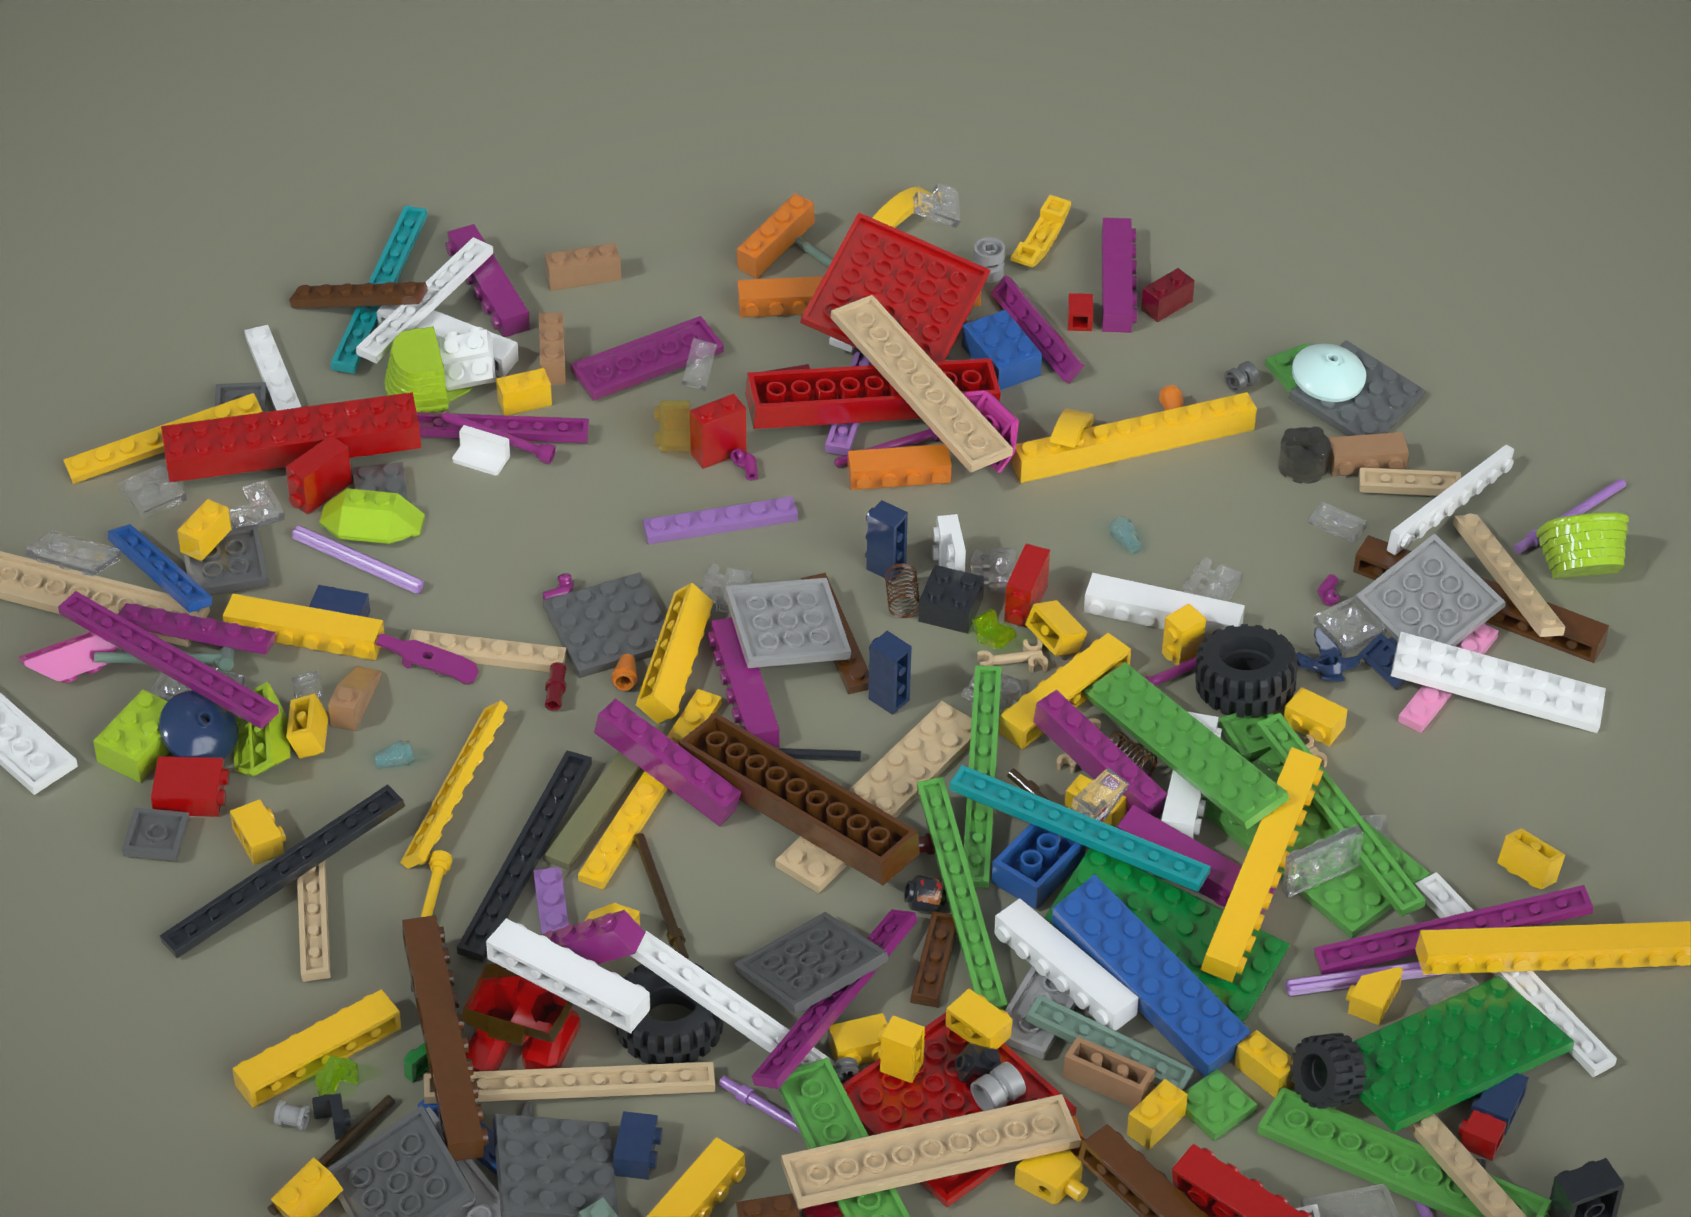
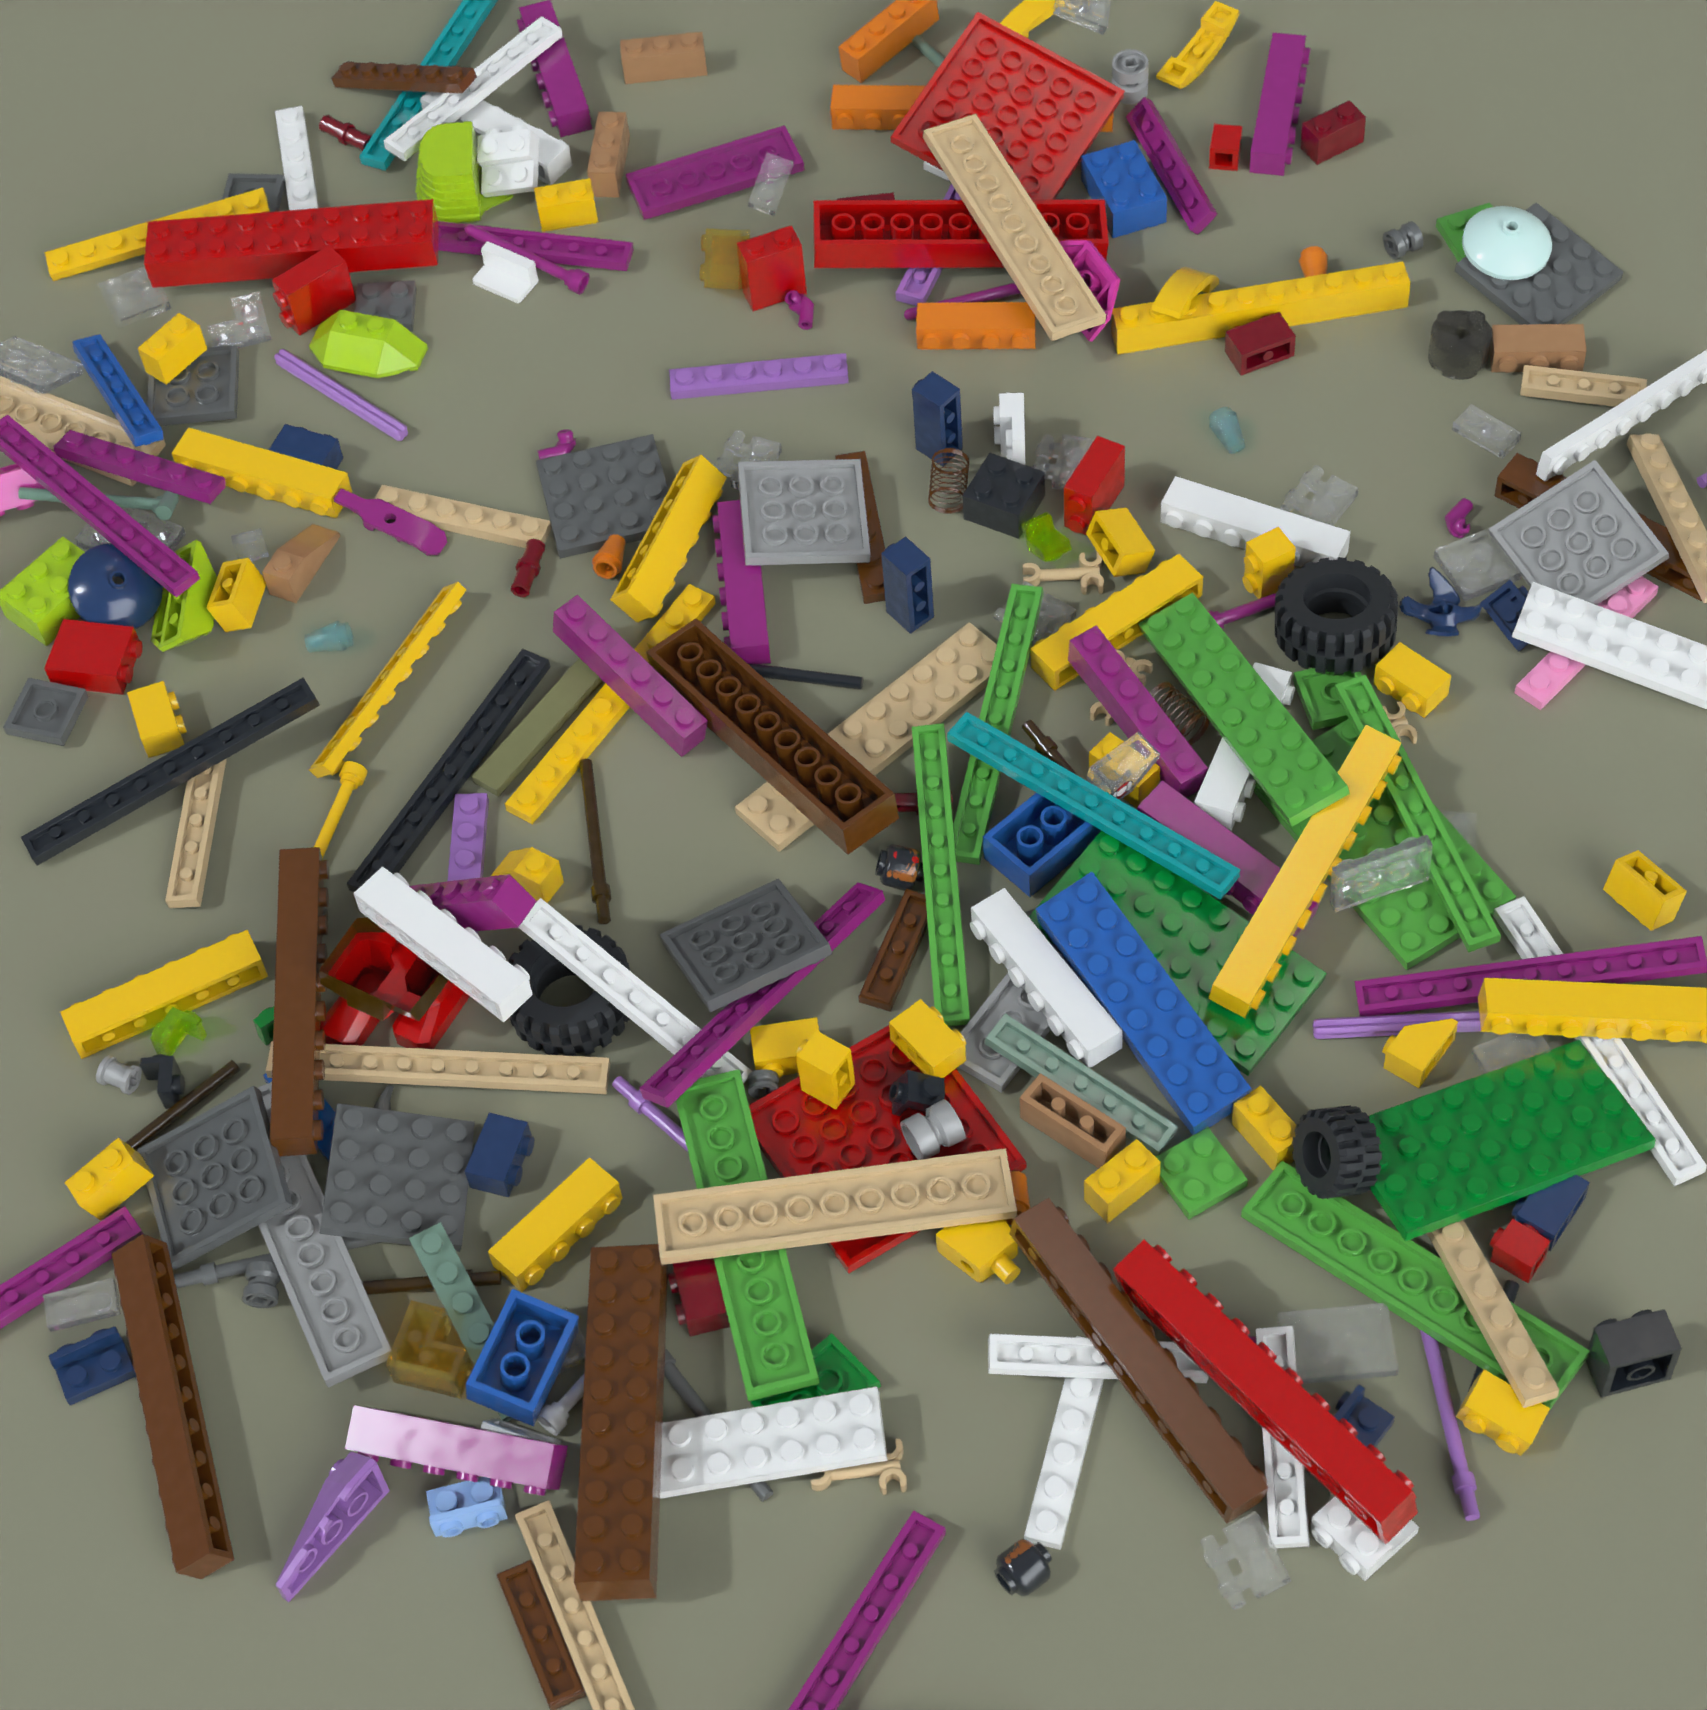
camera: 15 degrees right, 10 degrees up
(312, 345) = (344, 132): none -> dark red pin
(1139, 465) = (1260, 343): none -> dark red brick

